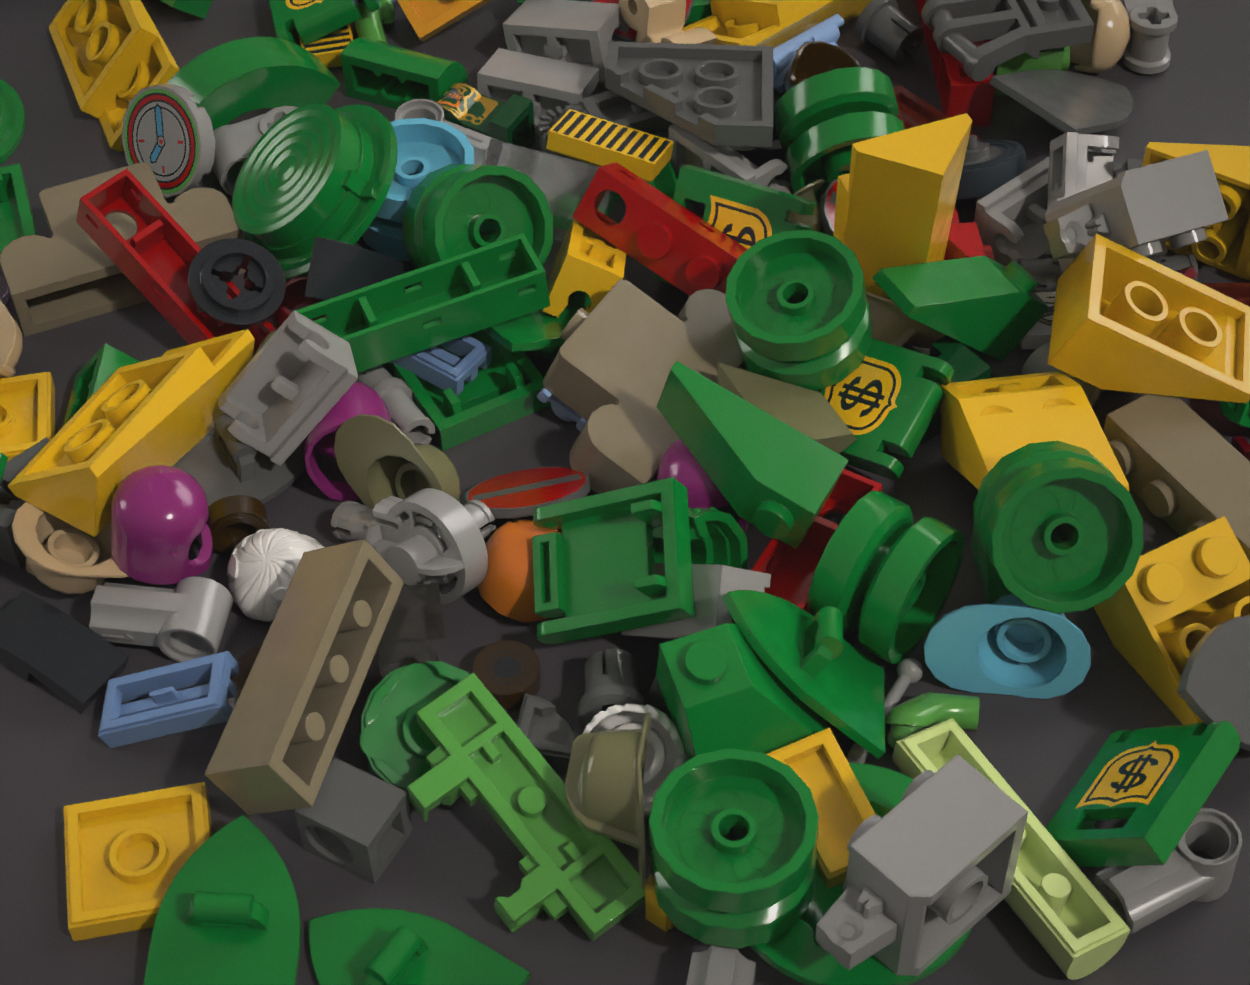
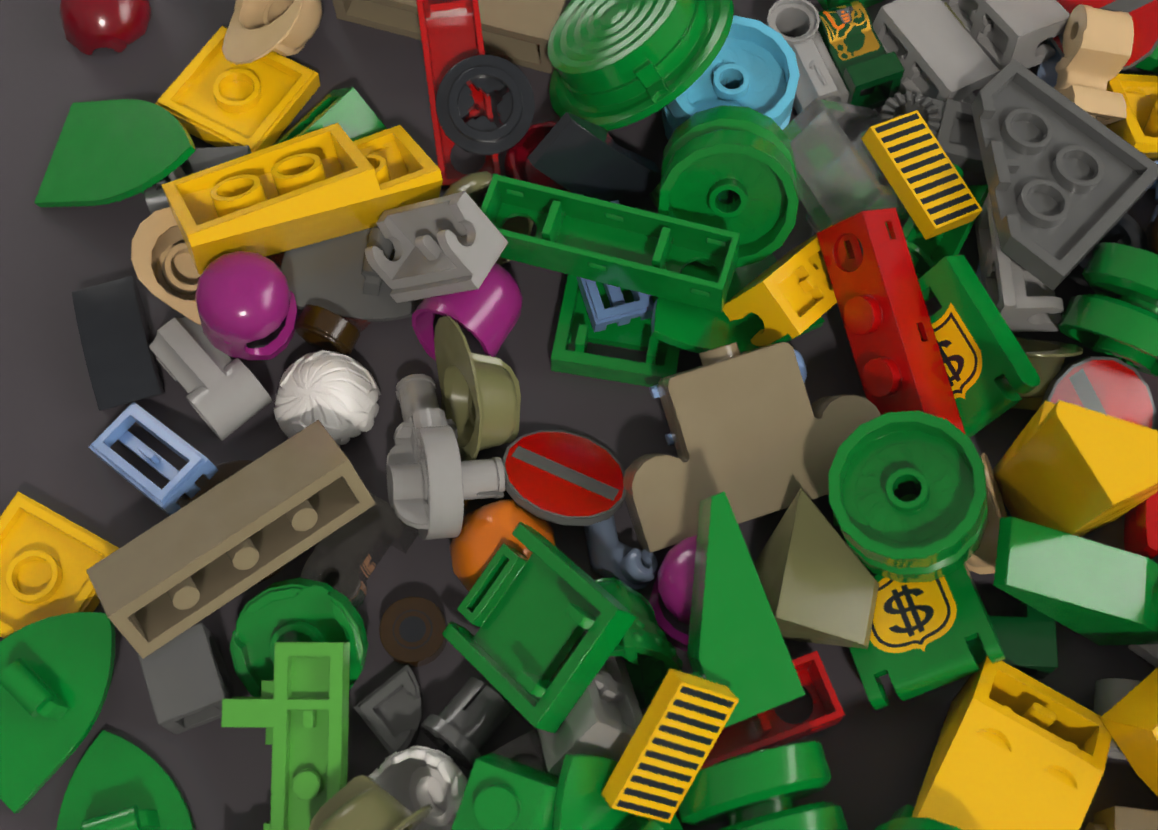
camera: 40 degrees right, 20 degrees up
(400, 404) = (540, 301): light grey pin -> none
(788, 544) = (669, 746): none -> yellow tile

